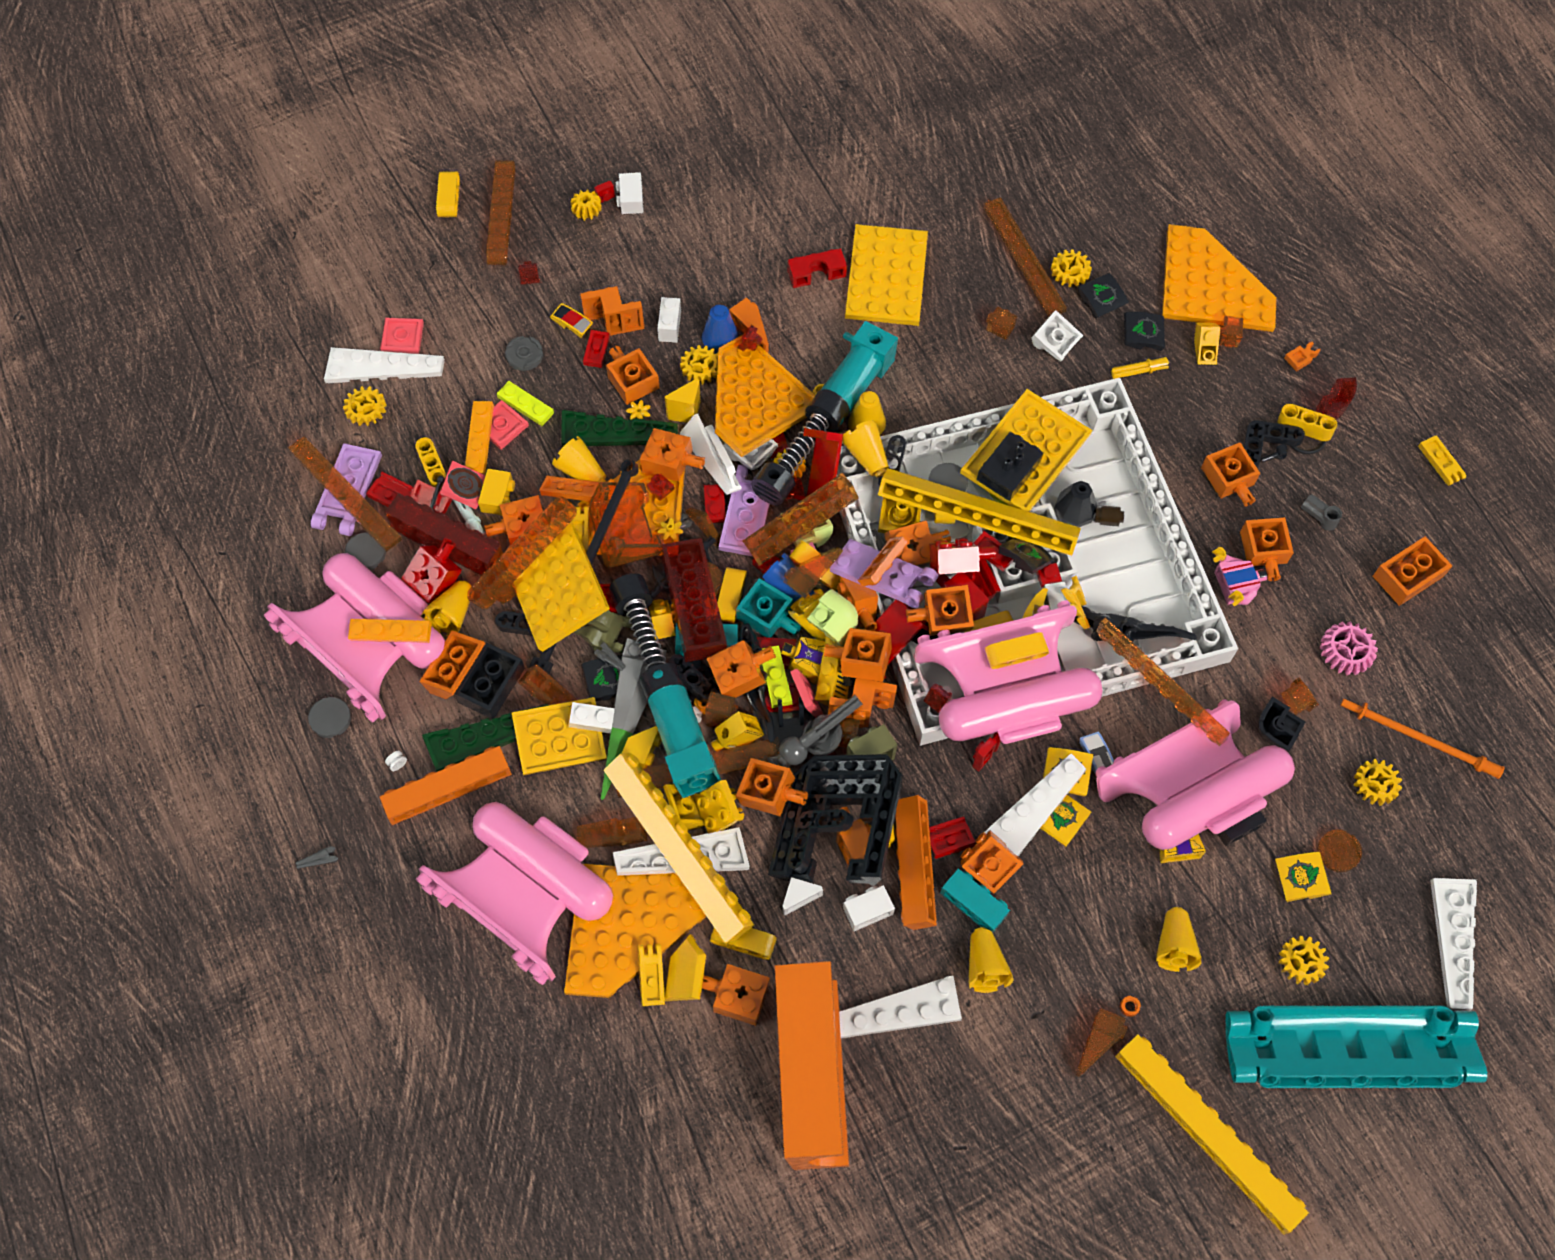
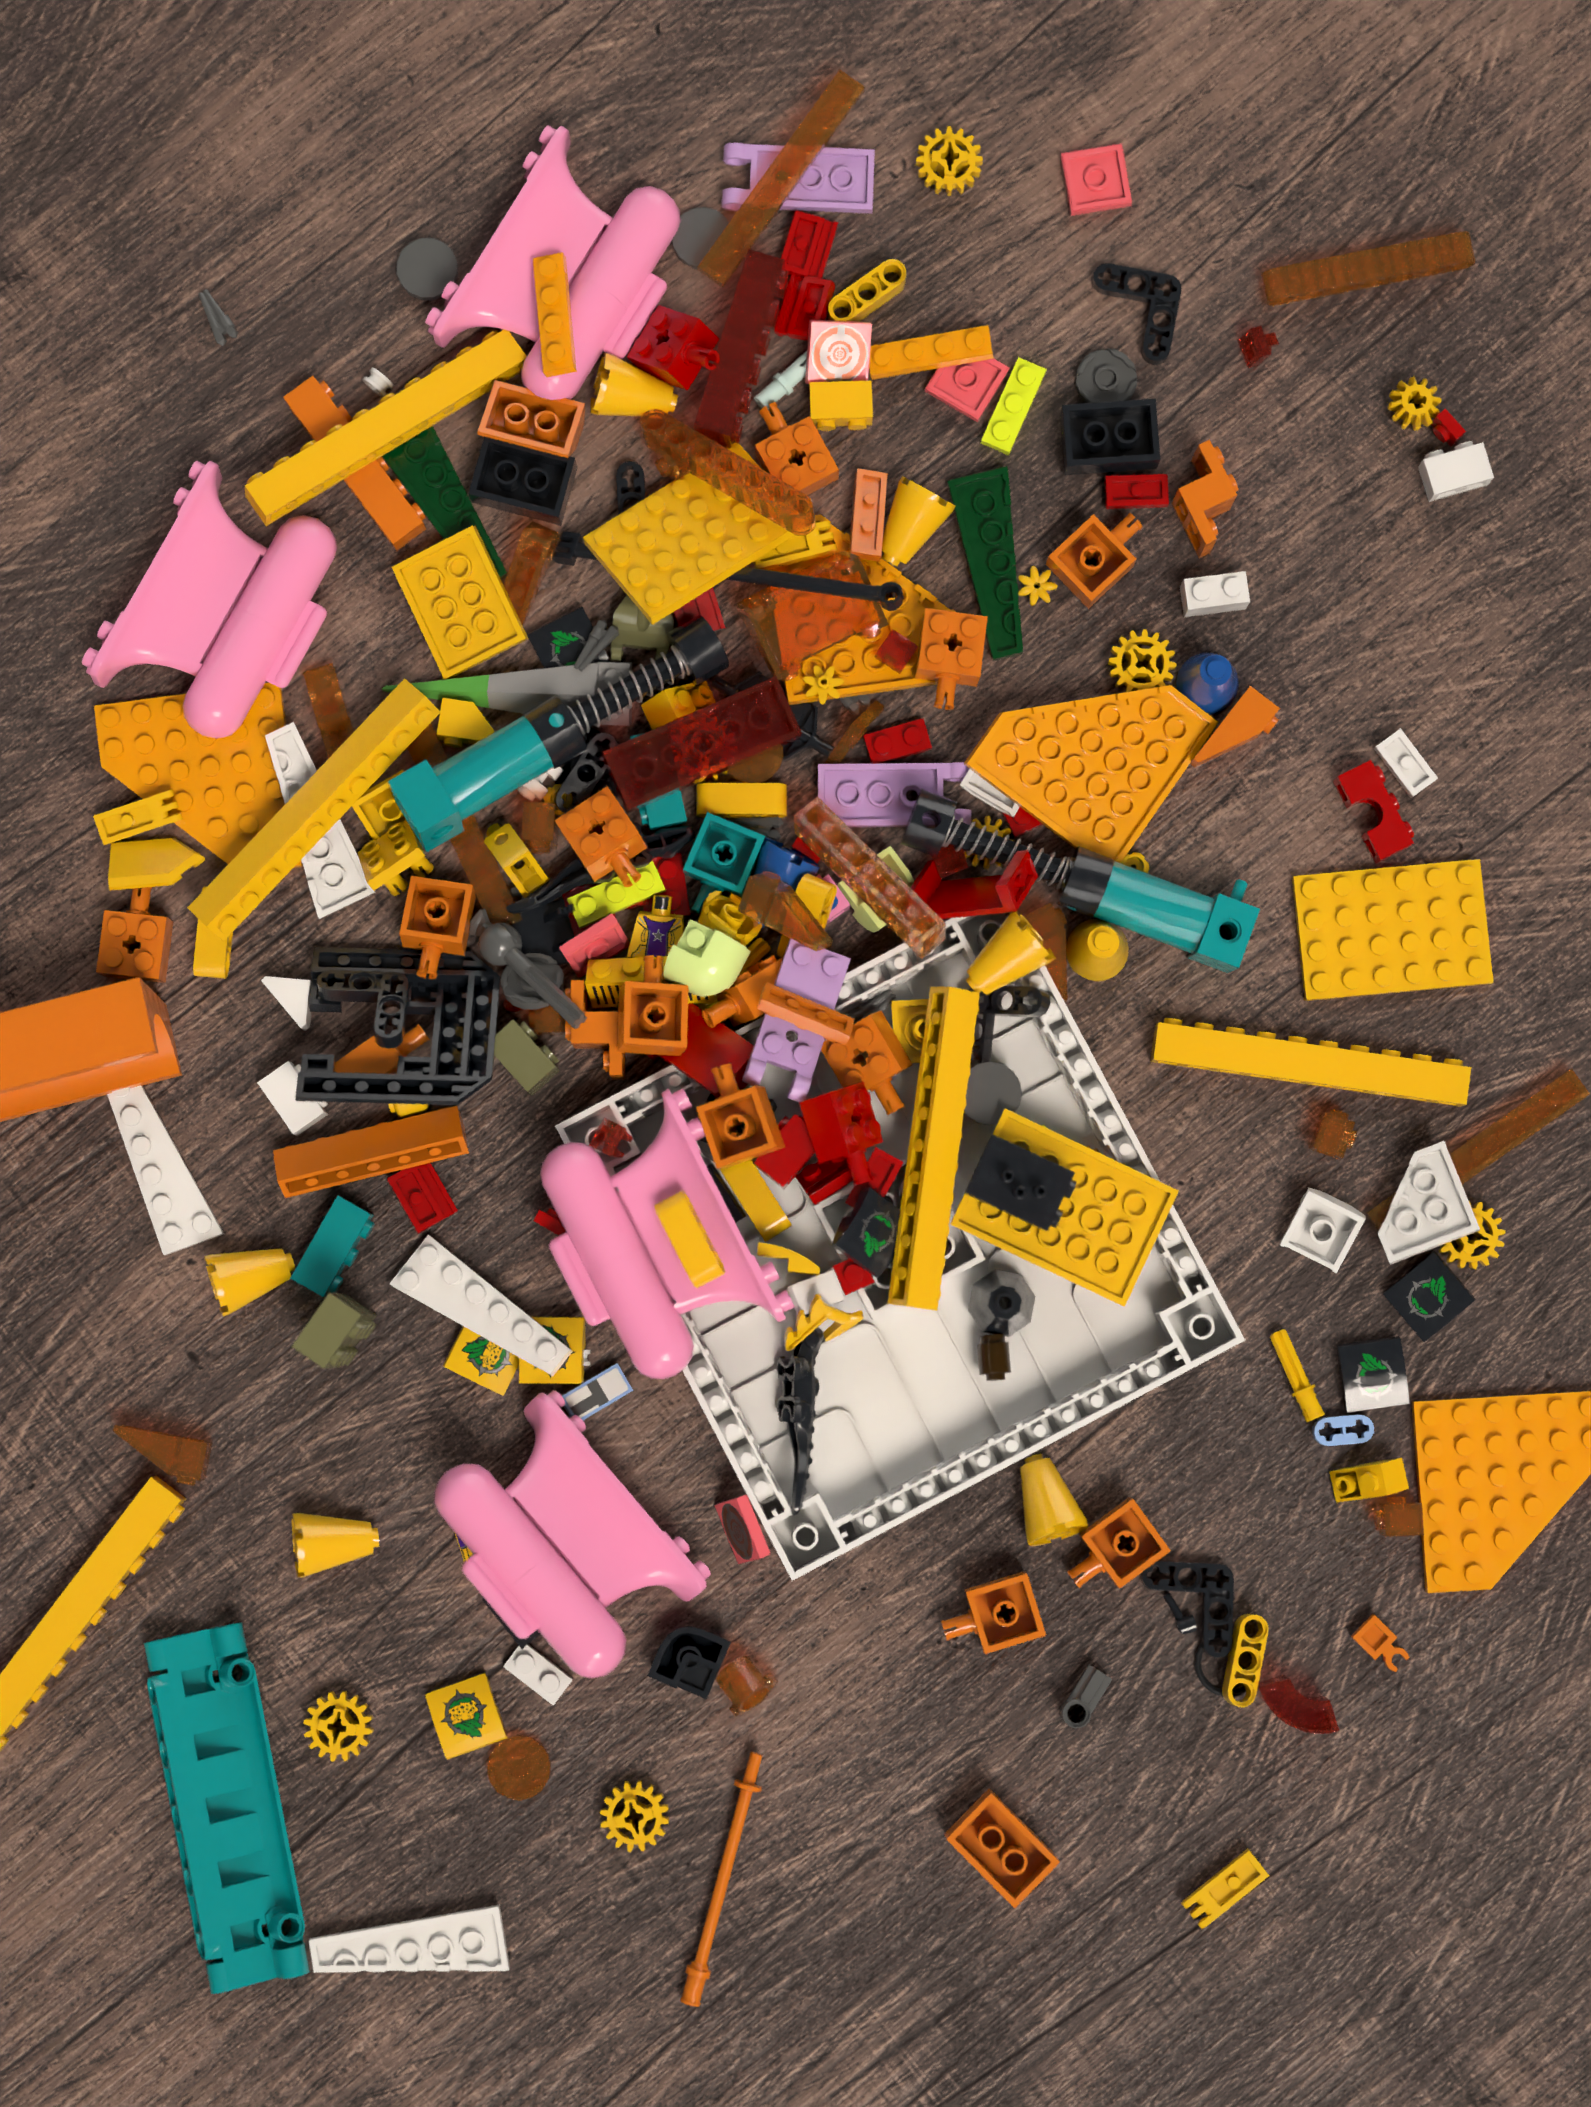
camera: 80 degrees right, 20 degrees up
(366, 364) = (1027, 137): white wing -> none
(430, 757) = (384, 426): none -> yellow brick
(440, 479) = (785, 315): black hinge -> none
(447, 194) = (1384, 172): yellow beam -> none
(485, 319) = (1157, 301): none -> black beam
(560, 352) = (1110, 436): none -> black brick
(572, 319) = (1183, 437): slope -> none
(591, 717) = (486, 641): white brick -> none
(683, 402) = (1057, 657): yellow slope -> none
(708, 445) = (975, 716): white wedge -> none
(750, 339) = (1196, 730): clear red tile -> none
(792, 248) = (1405, 763): none -> white plate
(957, 327) = (1311, 1064): none -> yellow brick
(990, 861) = (390, 1258): orange plate -> none
(1038, 896) = (335, 1331): none -> olive brick
(1053, 279) = (1427, 1207): none -> white plate
(1126, 1012) = (238, 1487): orange axle -> none
(1167, 686) = (694, 1476): clear orange plate -> none
(1178, 352) = (1342, 1422): none -> light blue beam
(1200, 677) = (742, 1529): none -> tile
(1203, 506) = (1048, 1503): none -> yellow cone
(1237, 578) = (931, 1574): torso -> none
(1277, 826) = (538, 1673): none -> white plate
(1355, 643) = (863, 1757): bright pink gear -> none

